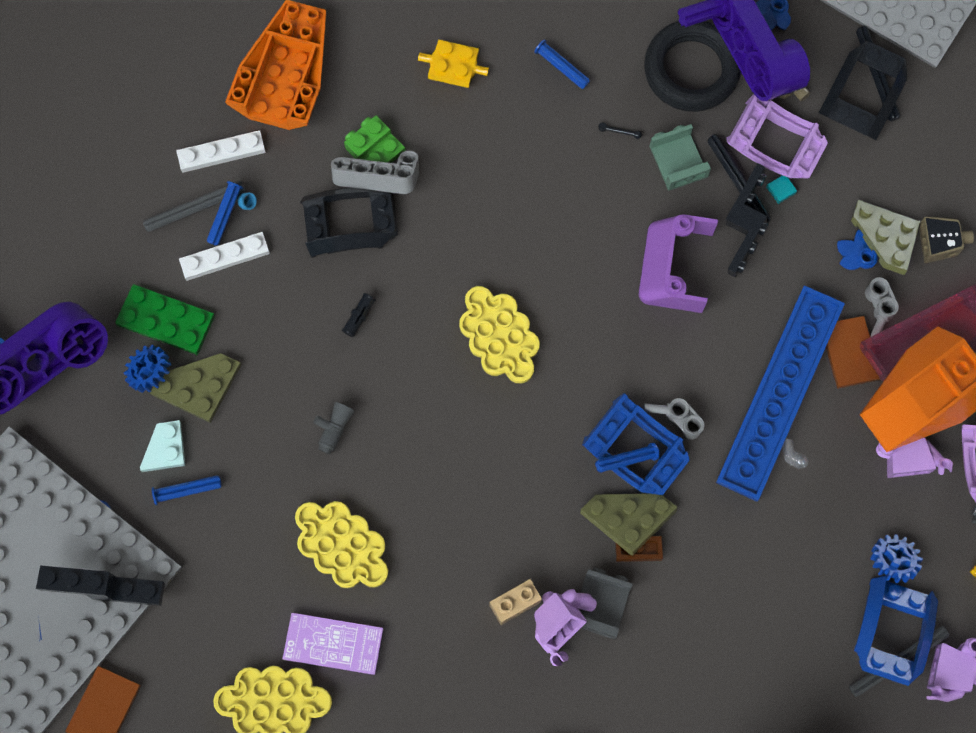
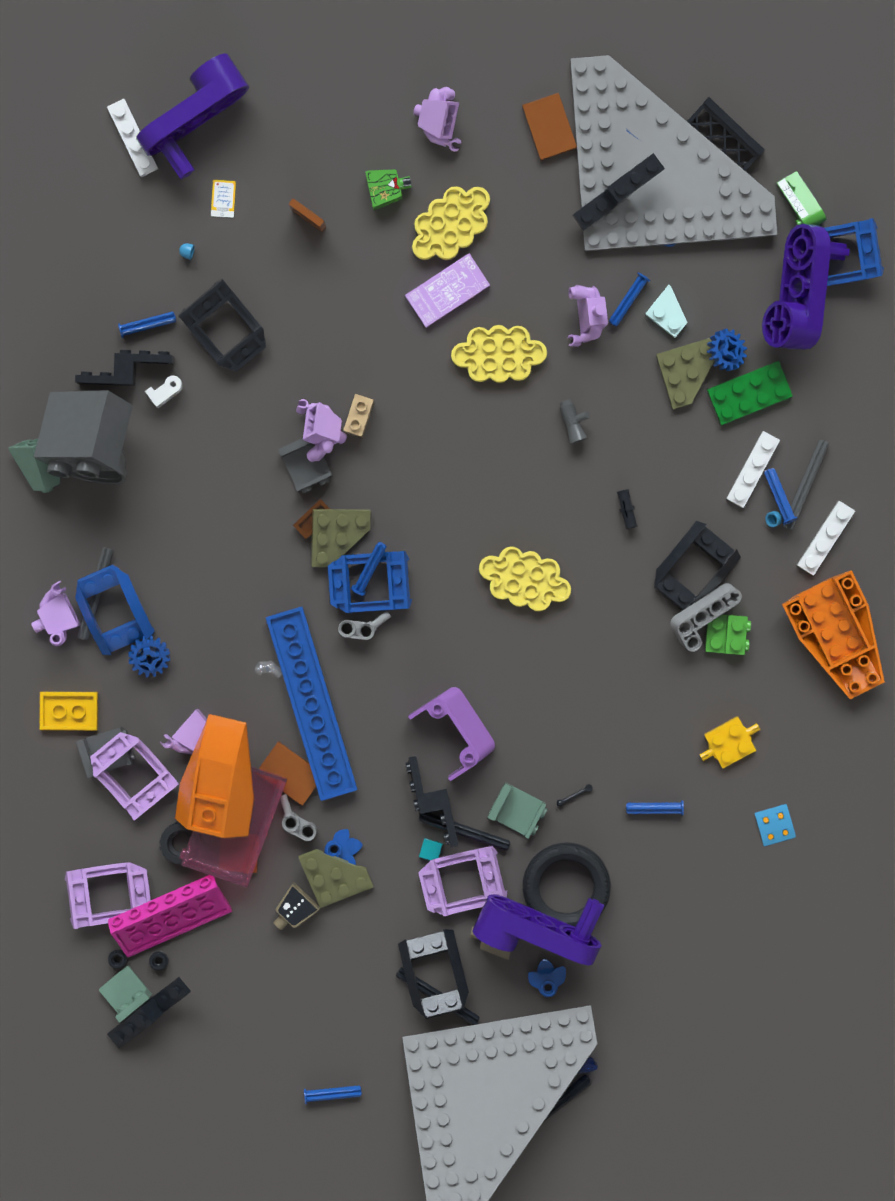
camera: 140 degrees right, 15 degrees up
(229, 502) = (591, 313): none -> lavender torso

